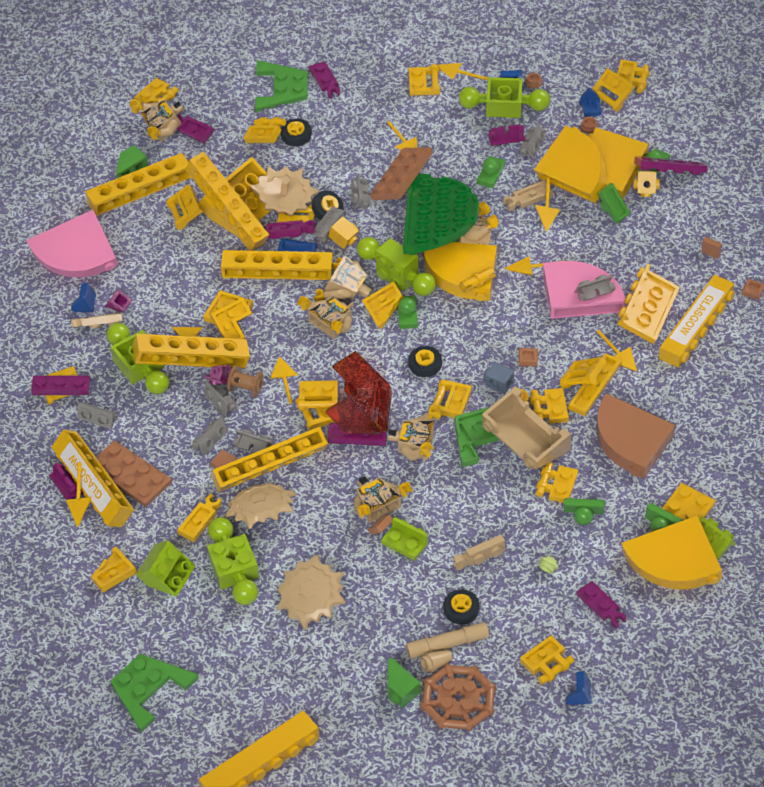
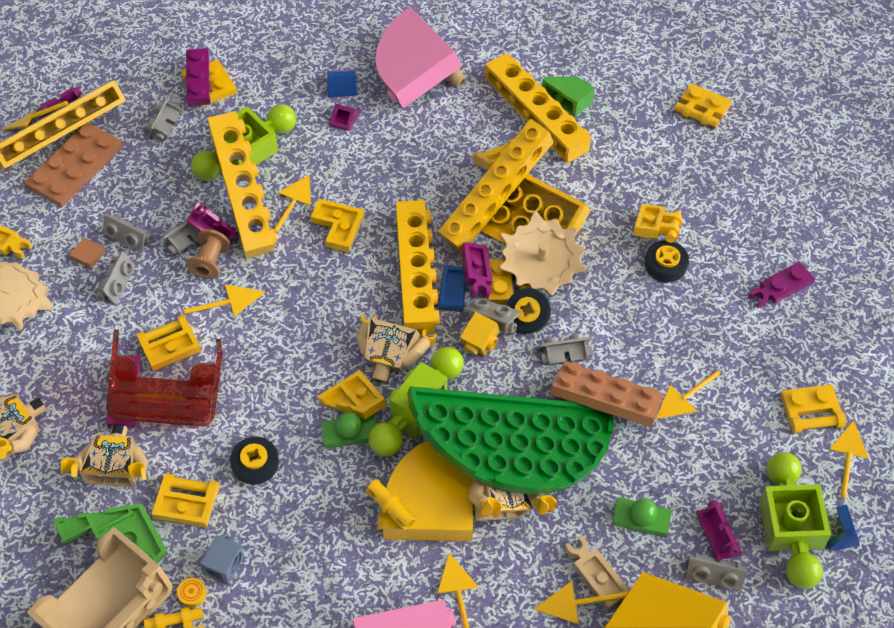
camera: 80 degrees right, 5 degrees up
(95, 321) = (308, 100): tan plate -> none
(159, 116) = (650, 110): torso -> none
(195, 129) = (645, 148): magenta plate -> none
(228, 316) = (304, 221): yellow plate -> none
(268, 459) = (74, 292): yellow brick -> none
(289, 85) = (757, 244): bright green wing -> none
(312, 391) = (189, 335): yellow plate -> none
(329, 314) = (327, 335): torso -> none
(528, 356) = (272, 599): nougat tile -> none
(533, 80) = (853, 563): nougat plate -> none

